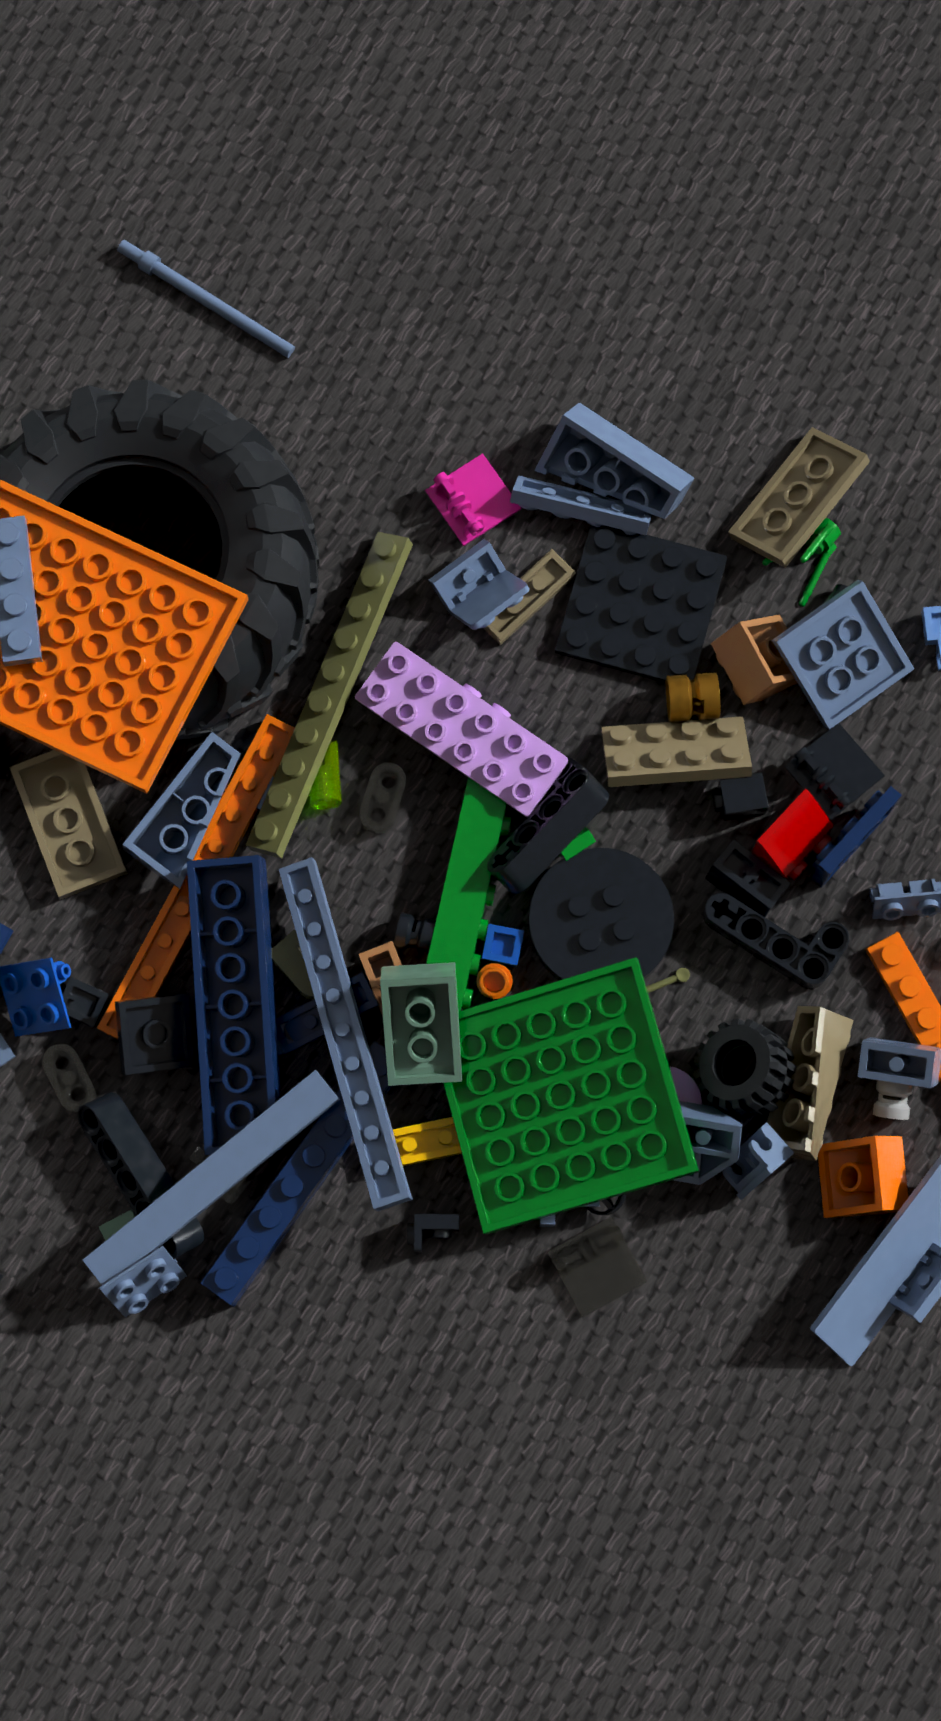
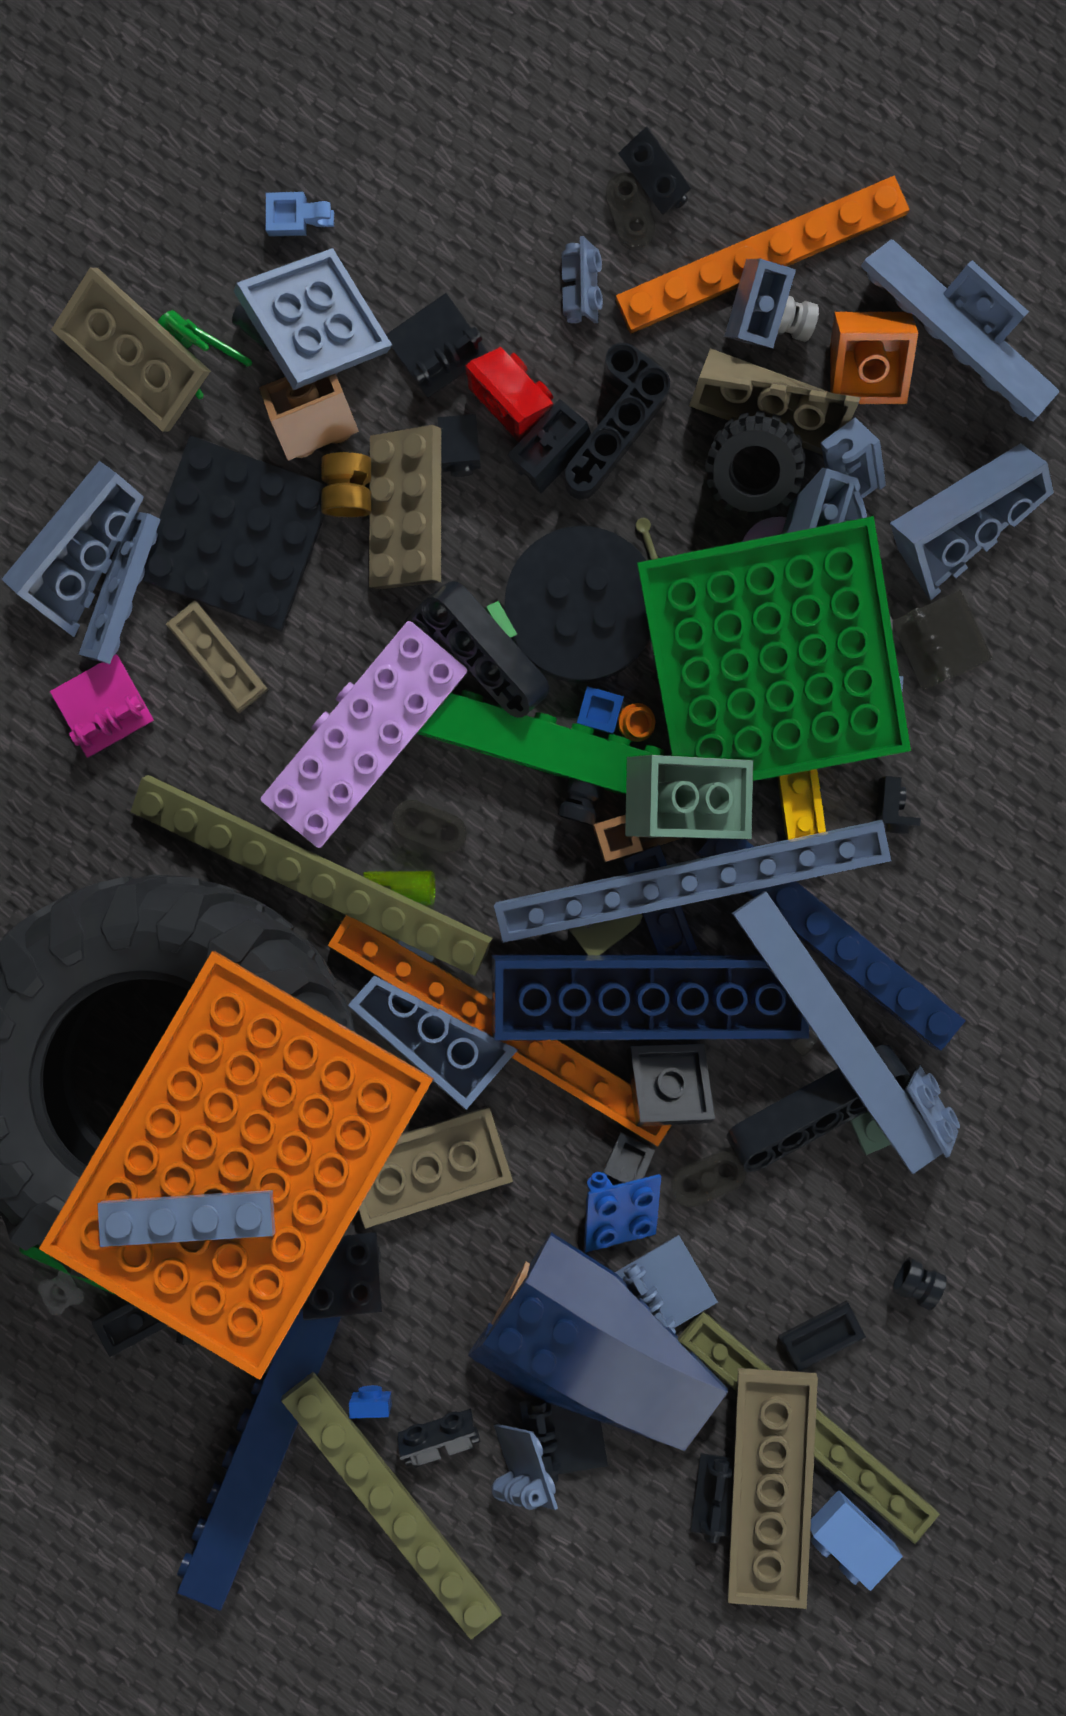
camera: 85 degrees left, 10 degrees up
(478, 586) = (205, 704): sand blue bracket -> none
(717, 1282) = (970, 515): none -> sand blue wedge
(854, 834) = (515, 325): dark blue plate -> none

